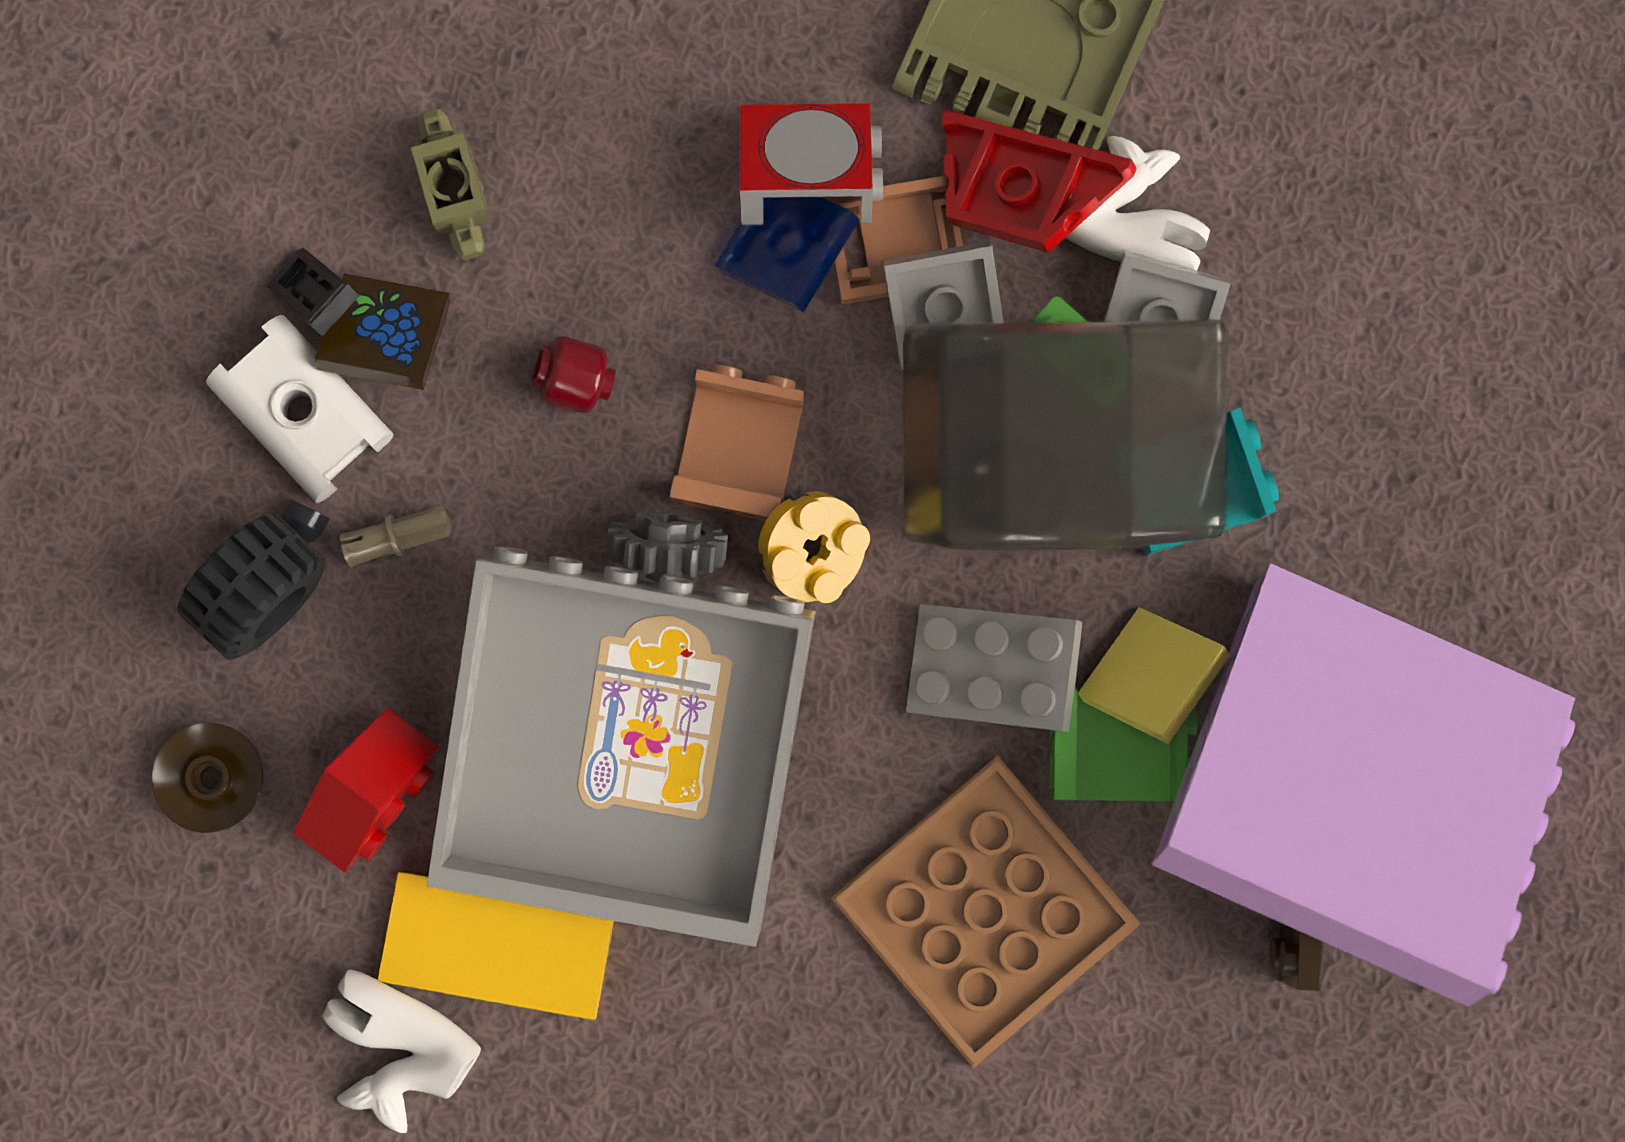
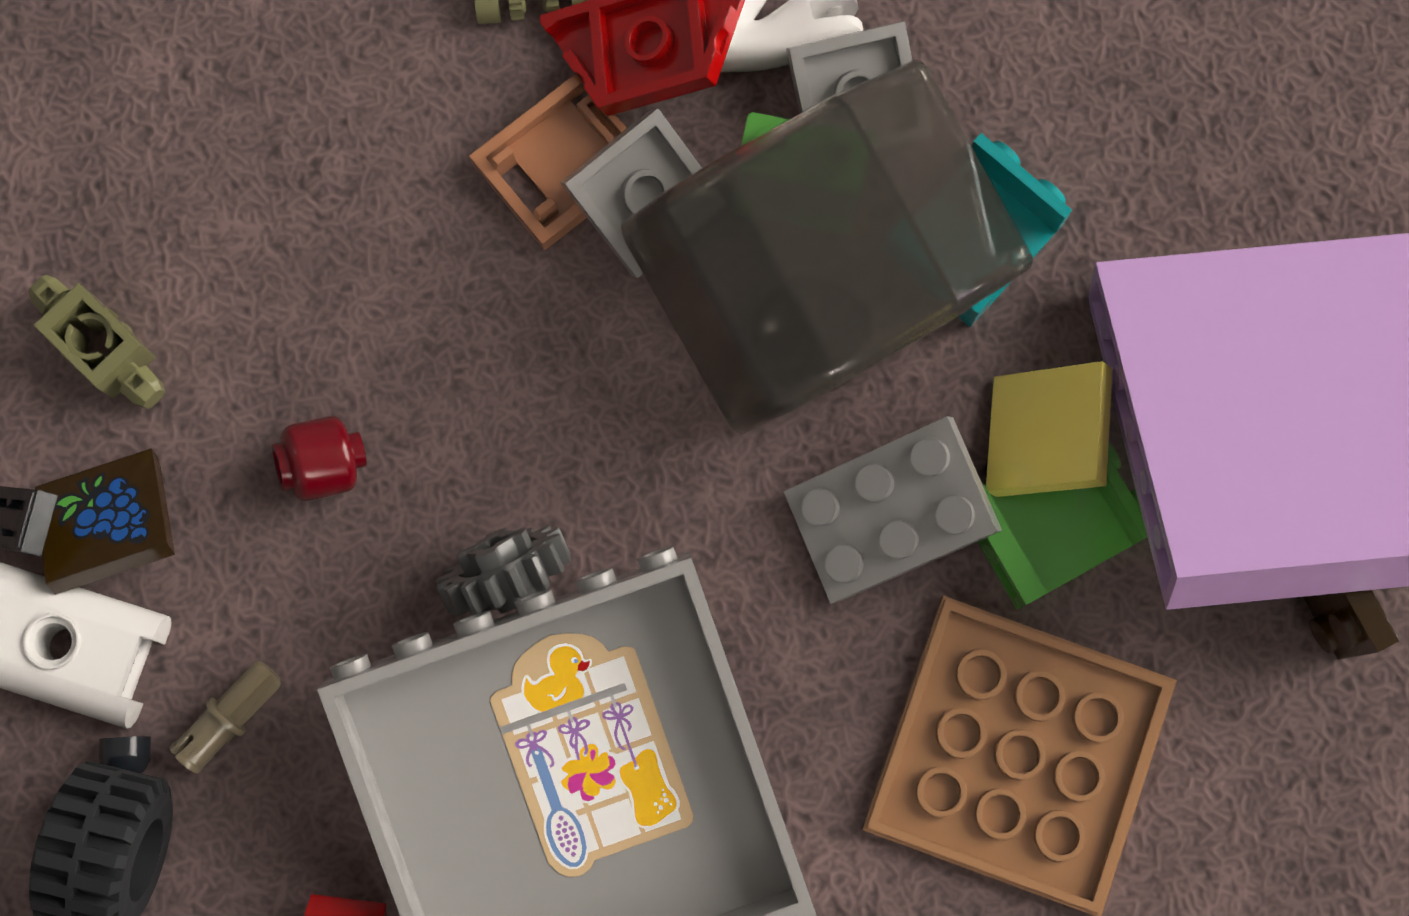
camera: 30 degrees left, 5 degrees down
(738, 443) = (519, 436): nougat panel -> none
(790, 249) = (458, 217): clear blue plate -> none
(808, 154) = (431, 119): panel -> none
(837, 561) = (678, 484): yellow plate -> none

